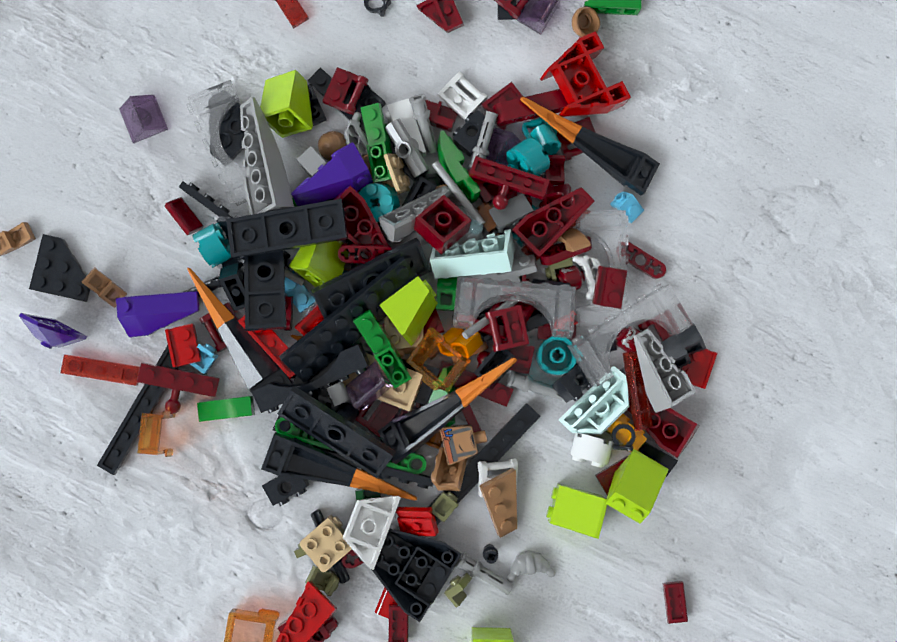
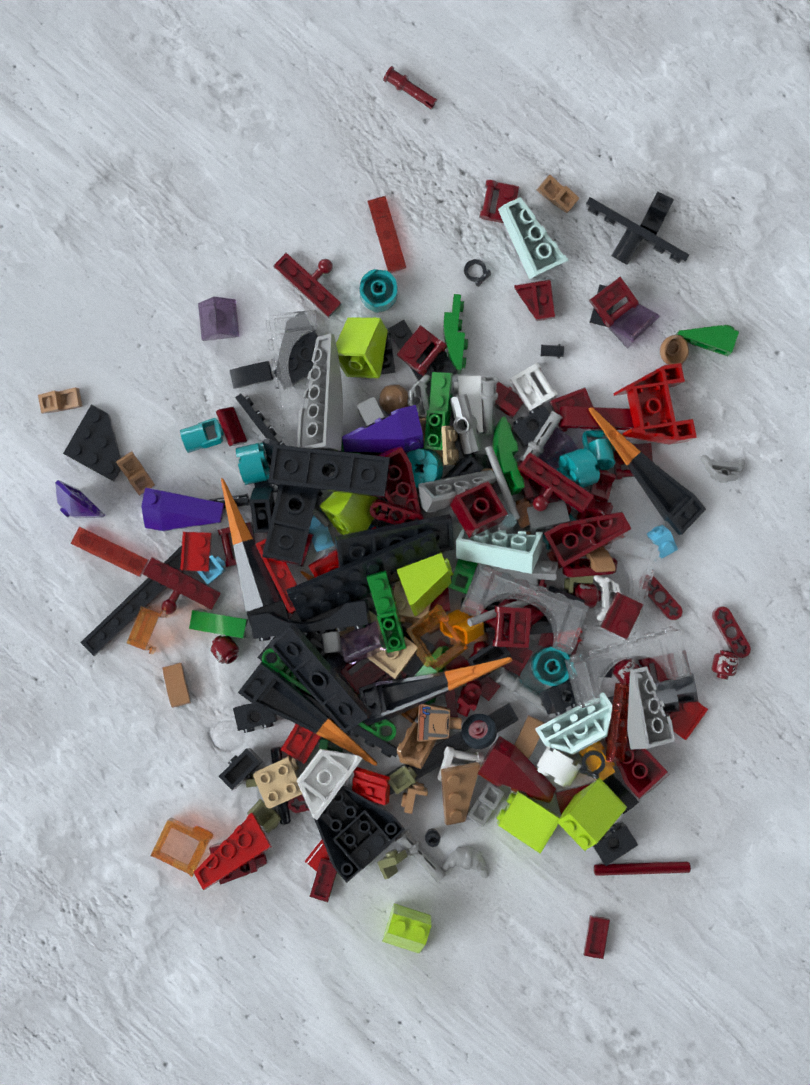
camera: 15 degrees right, 0 degrees up
(153, 236) = (196, 437): none -> teal piece
(189, 161) = (251, 374): none -> black slope
(201, 479) = (176, 685): none -> medium nougat slope
(219, 59) = (308, 284): none -> dark red plate
(238, 431) = (224, 649): none -> dark red head
(286, 541) = (240, 768): none -> black brick
(289, 36) = (378, 280): none -> teal brick
(337, 500) = (300, 743): none -> red plate
(371, 68) = (453, 339): none -> green slope
(456, 522) = (409, 797): none -> medium nougat bracket
(470, 56) = (552, 350): none -> black pin
(486, 409) = (468, 698): none -> dark red hips
(505, 438) = (479, 731): none -> black wheel
(531, 506) = (485, 804): none -> light grey slope
(546, 464) = (511, 768): none -> dark red wedge
(553, 431) = (528, 736): none -> medium nougat slope
(664, 122) = (722, 470): none -> light grey piece
(676, 505) = (625, 843): none -> black brick
(698, 523) = (642, 868): none -> dark red axle
(721, 305) = (725, 664): none -> dark red head
(726, 273) = (739, 634): none -> dark red beam

